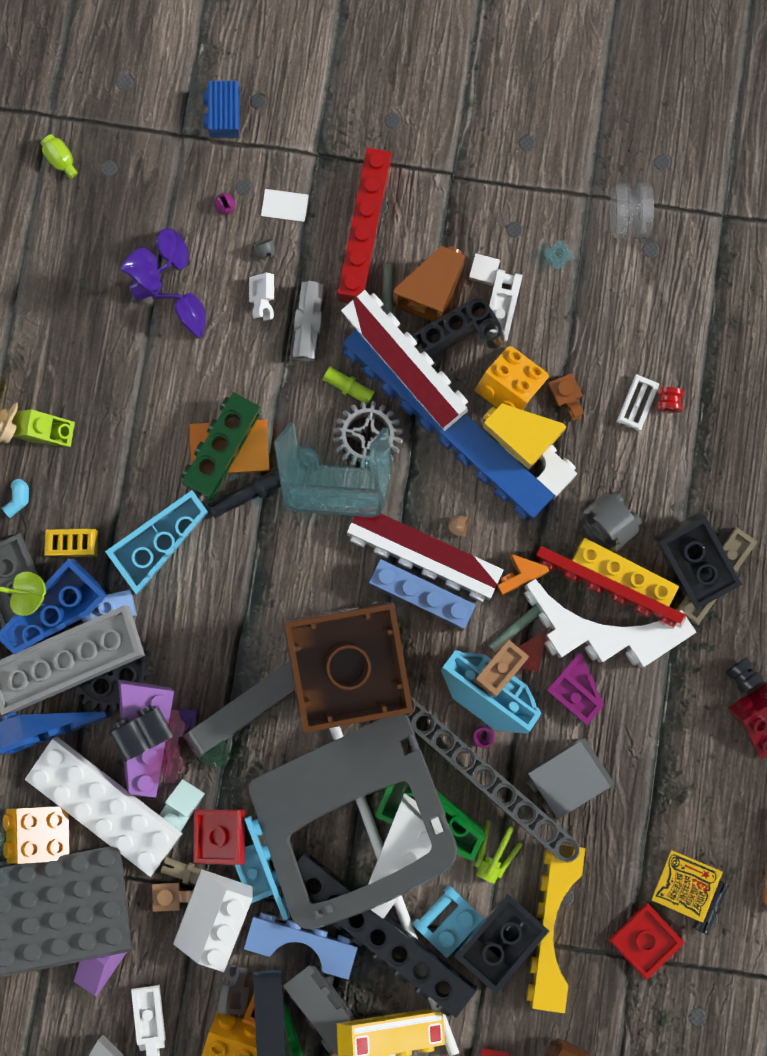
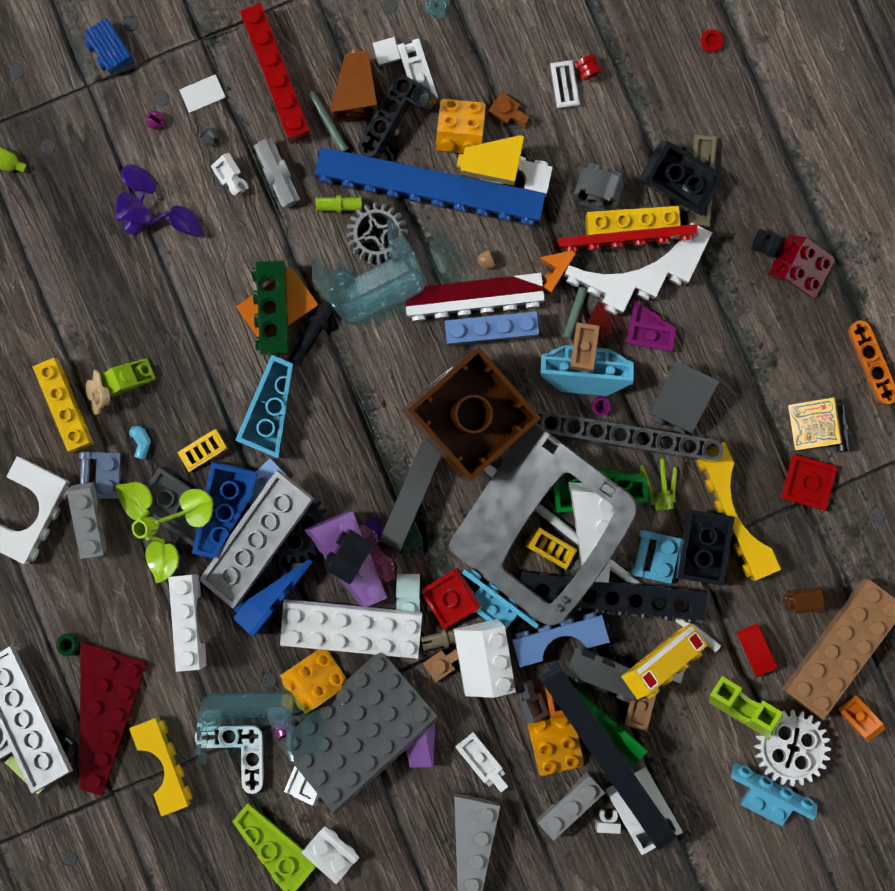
camera: 30 degrees left, 5 degrees up
(339, 826) = (533, 538): none -> yellow slope
(404, 360) = (371, 159): brick -> none

